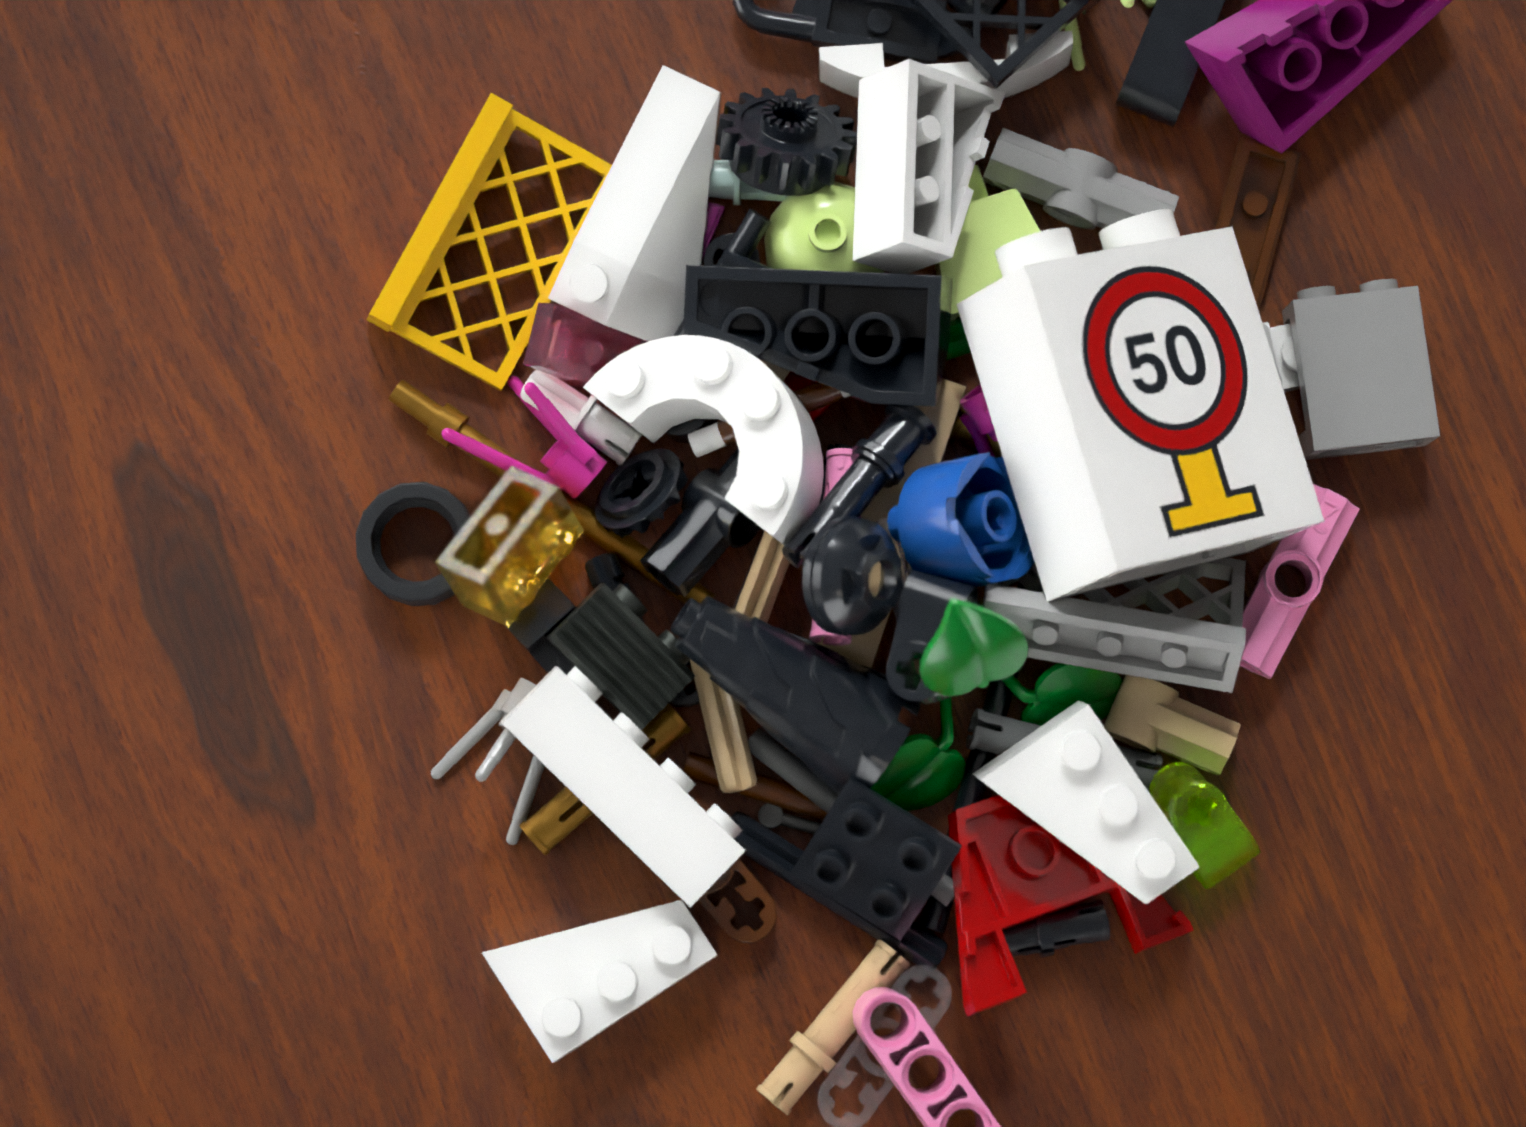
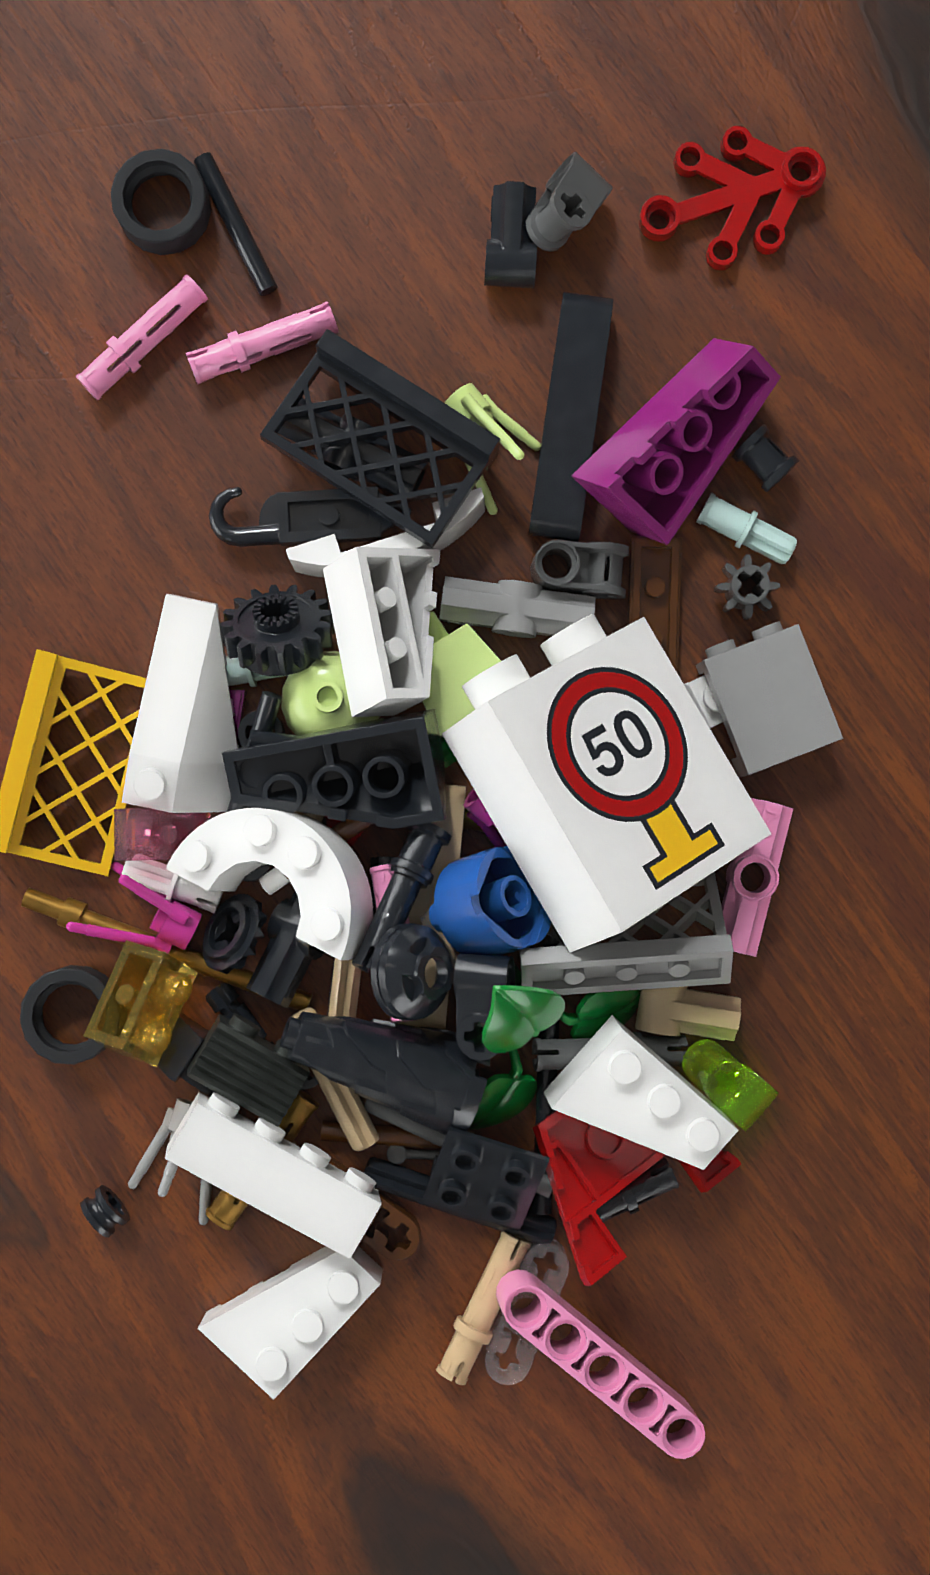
camera: 15 degrees left, 5 degrees up
(397, 793) = (104, 1211): none -> black bush
(1174, 158) = (585, 568): none -> dark grey piece
(1366, 213) = (760, 590): none -> dark grey gear
(1383, 162) = (747, 529): none -> light aqua axle
(1425, 81) = (765, 458): none -> black bush

